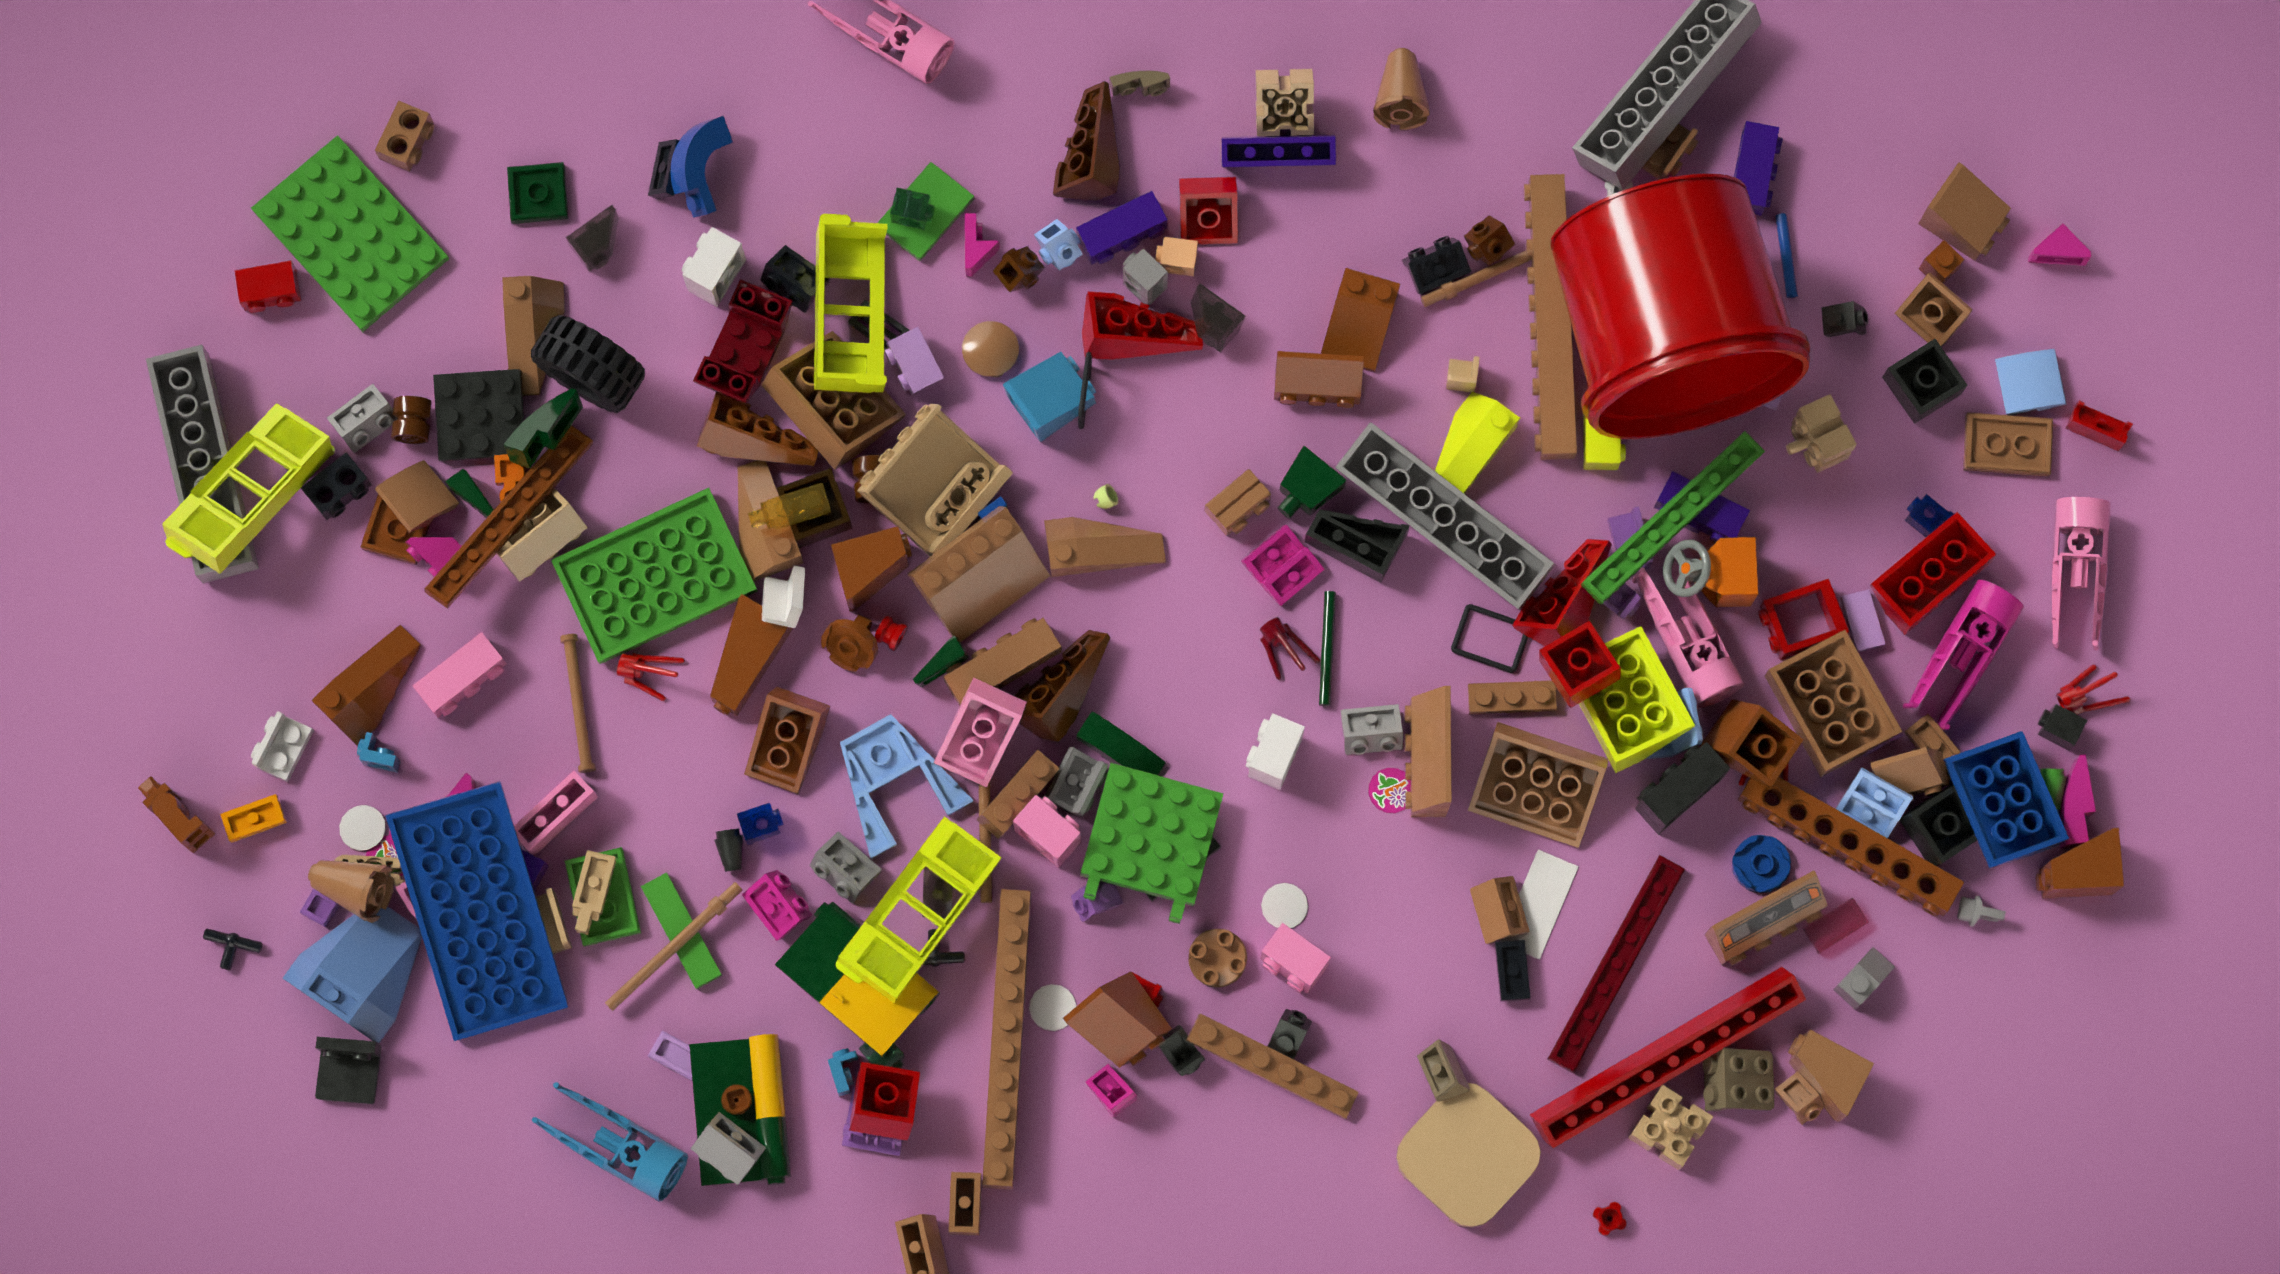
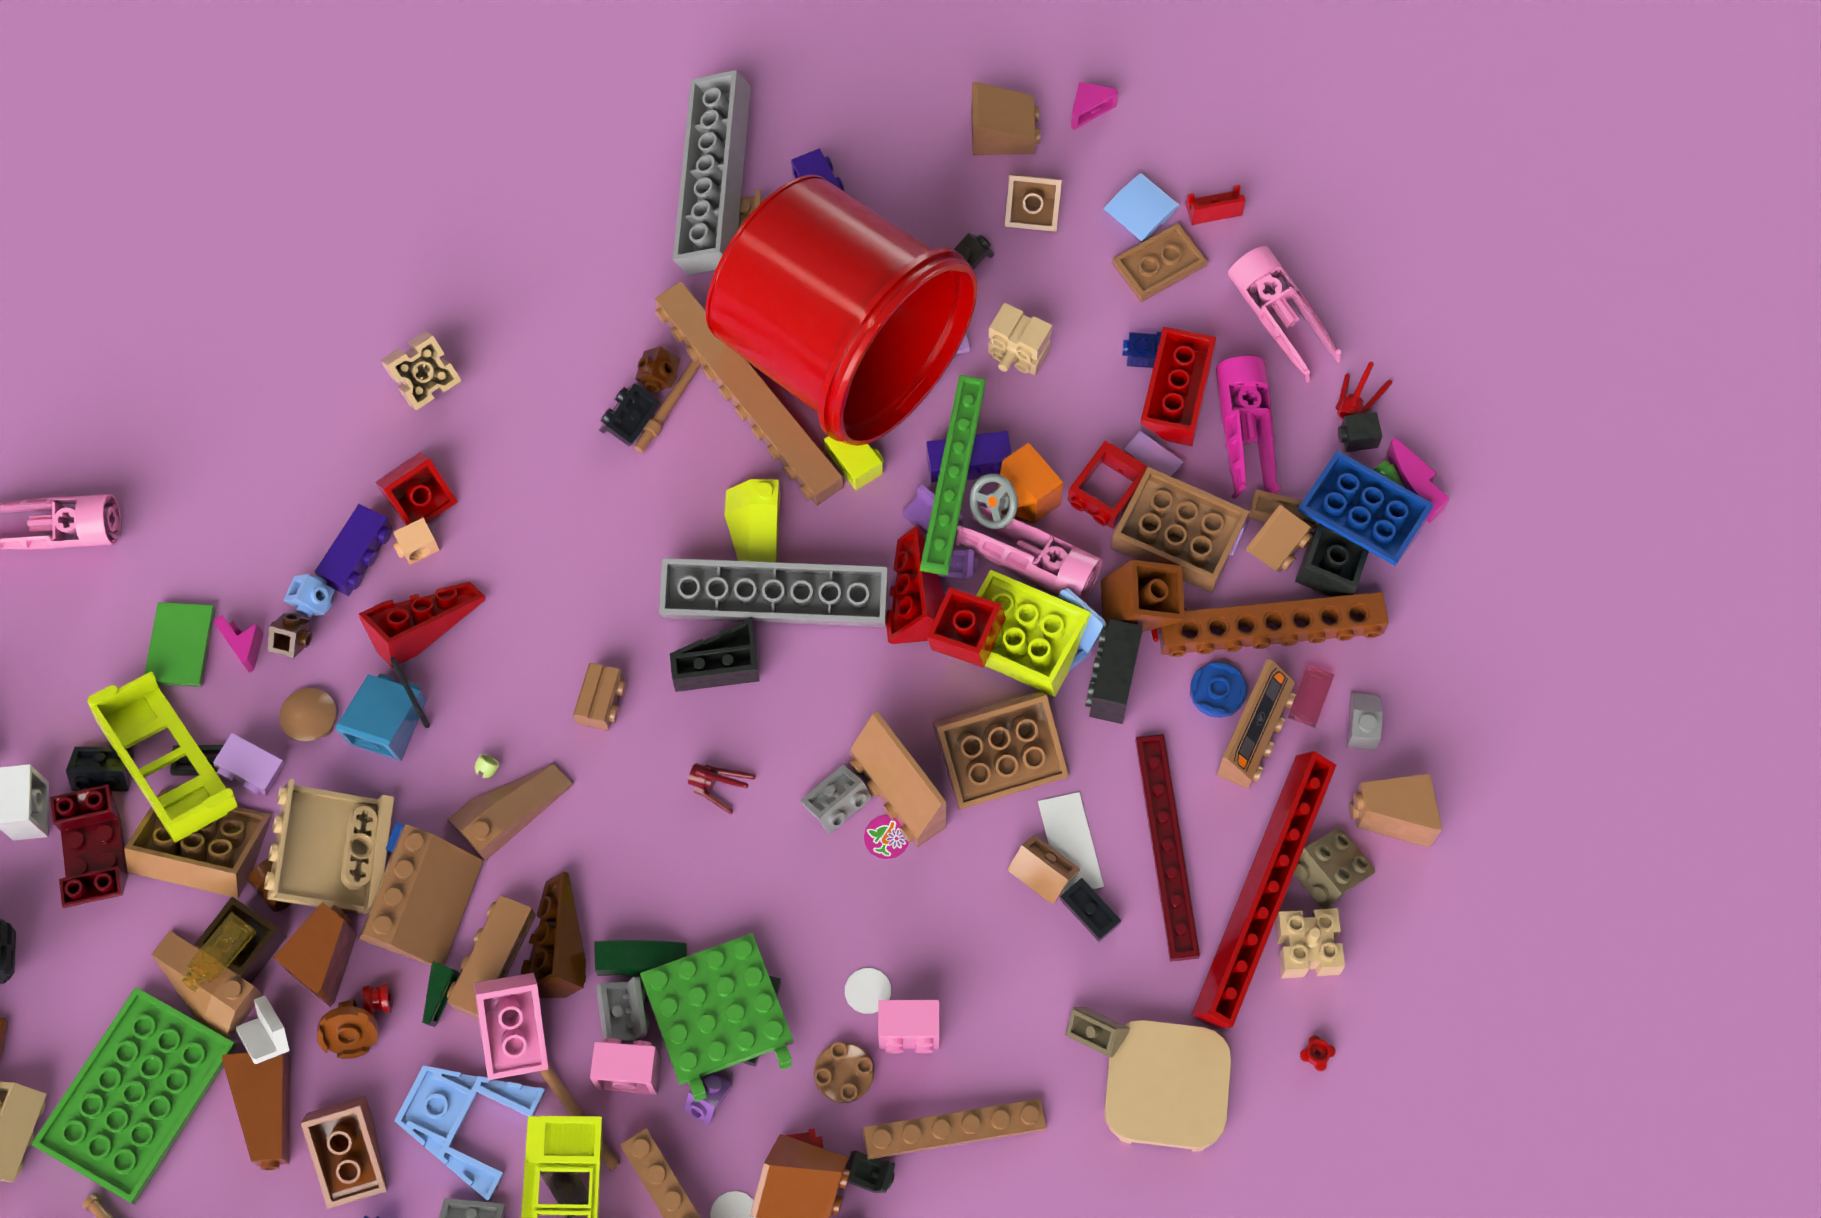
camera: 35 degrees left, 10 degrees down
(634, 667) = (167, 1183): red plant -> none
(741, 433) = (129, 925): dark orange wedge -> none
(911, 208) = (164, 646): clear green brick -> none
(1017, 794) = (578, 1055): medium nougat brick -> none
(1092, 154) = (292, 513): reddish brown wedge -> none
(1144, 276) = (398, 572): light grey brick -> none
(1149, 82) = (298, 427): dark tan slope -> none
(1215, 318) = (479, 567): clear smoke slope -> none
(1275, 753) = (770, 862): white brick -> none
(1278, 151) = (441, 410): dark purple brick -> none
(1282, 565) = (670, 721): dark pink slope -> none
(1290, 1033) = (948, 1090): pearl dark grey bracket -> none
(1309, 484) = (647, 643): dark green torso -> none
(1318, 378) = (596, 556): dark orange slope -> none
(1327, 648) = (754, 761): dark green bar -> none
(1361, 317) = (598, 493): dark orange slope -> none
(1401, 93) = (511, 308): medium nougat cone -> none
(1462, 374) = (710, 481): tan panel -> none
(1481, 659) = (880, 686): black piece -> none
(1511, 697) = (928, 697): medium nougat plate -> none
(1800, 1098) = (1389, 846): medium nougat bracket -> none
(1874, 802) = (1269, 578): light blue slope -> none
(1924, 381) = (1065, 254): pearl dark grey brick -> none
(1942, 262) = (1011, 162): dark orange brick -> none
(1972, 910) = (1405, 610): light grey piece -> none
(2085, 870) = (1465, 520): dark orange slope -> none

